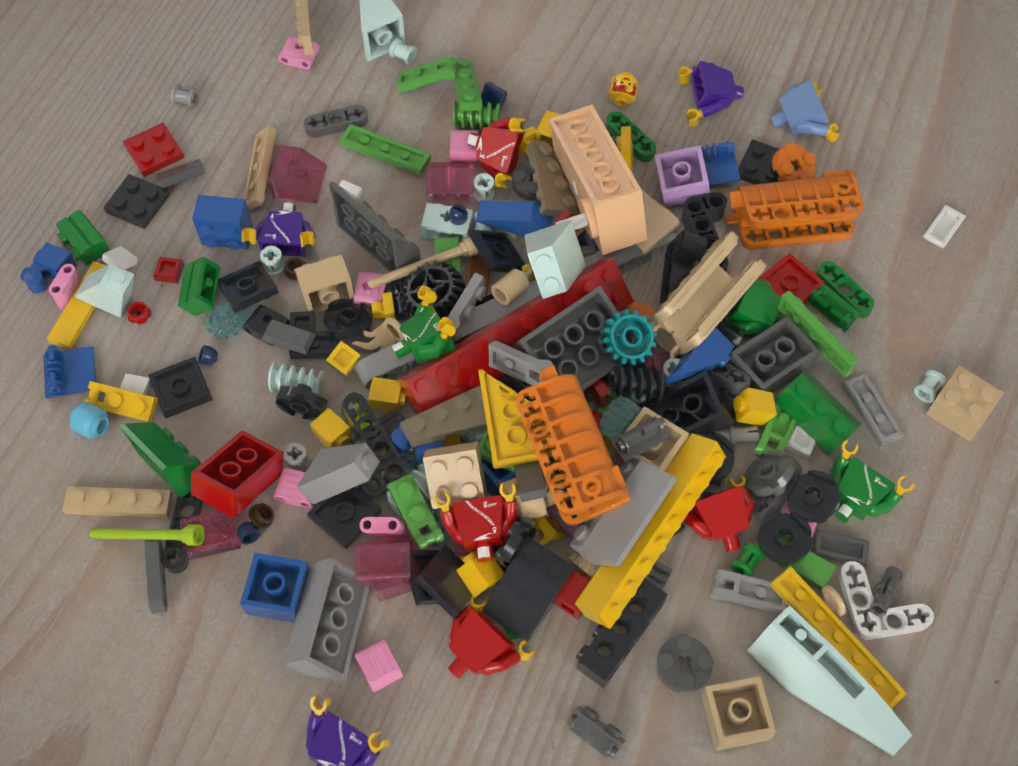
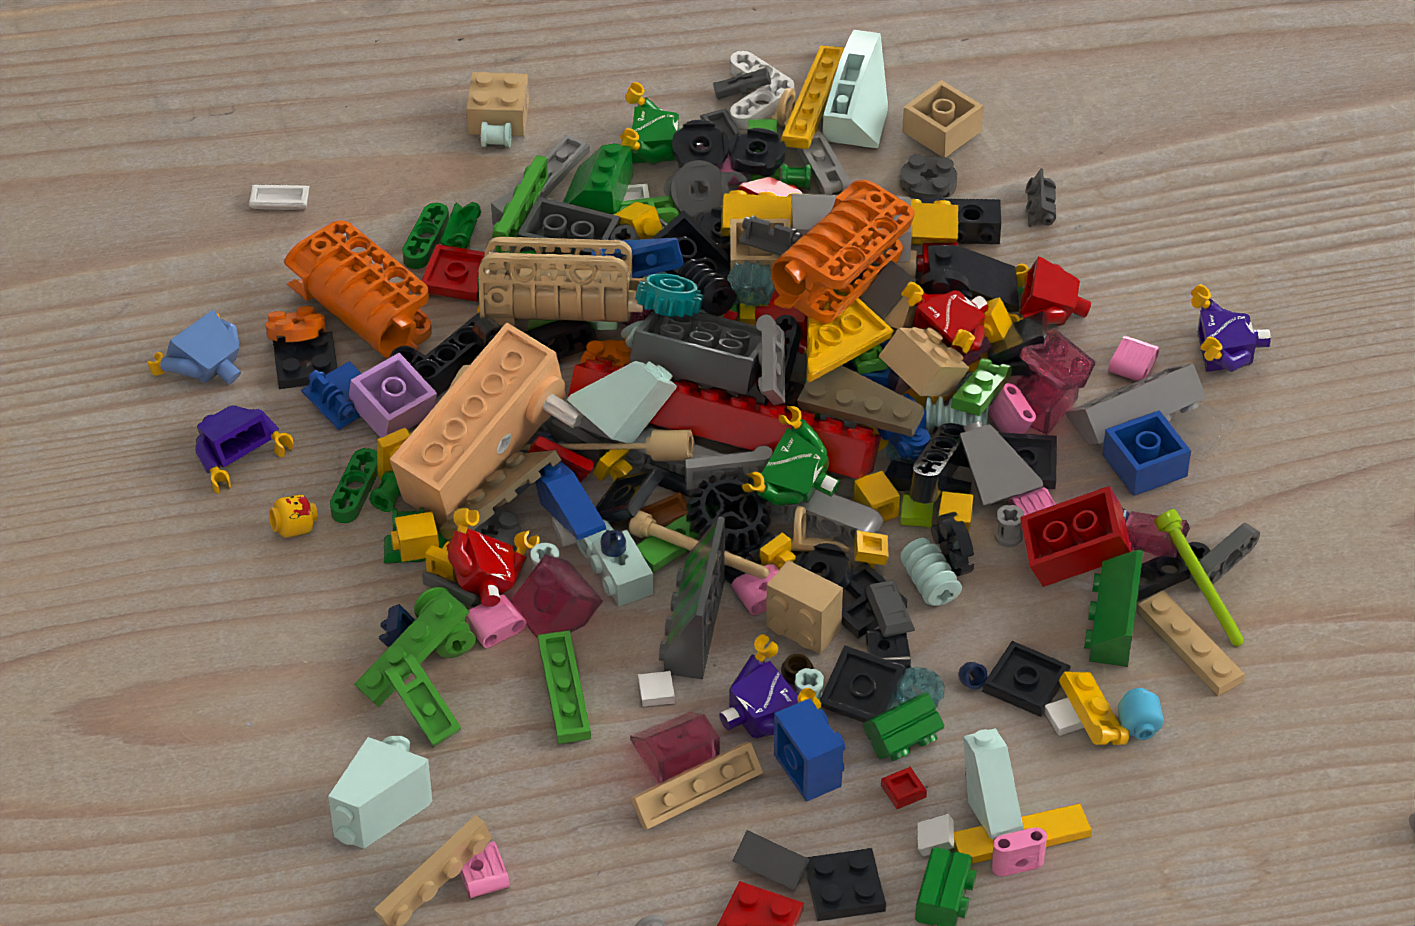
camera: 125 degrees left, 15 degrees down
(45, 264) = (1006, 897): blue brick -> none
(68, 370) = (1106, 783): blue hinge -> none
(330, 128) = (563, 777): dark grey beam -> none

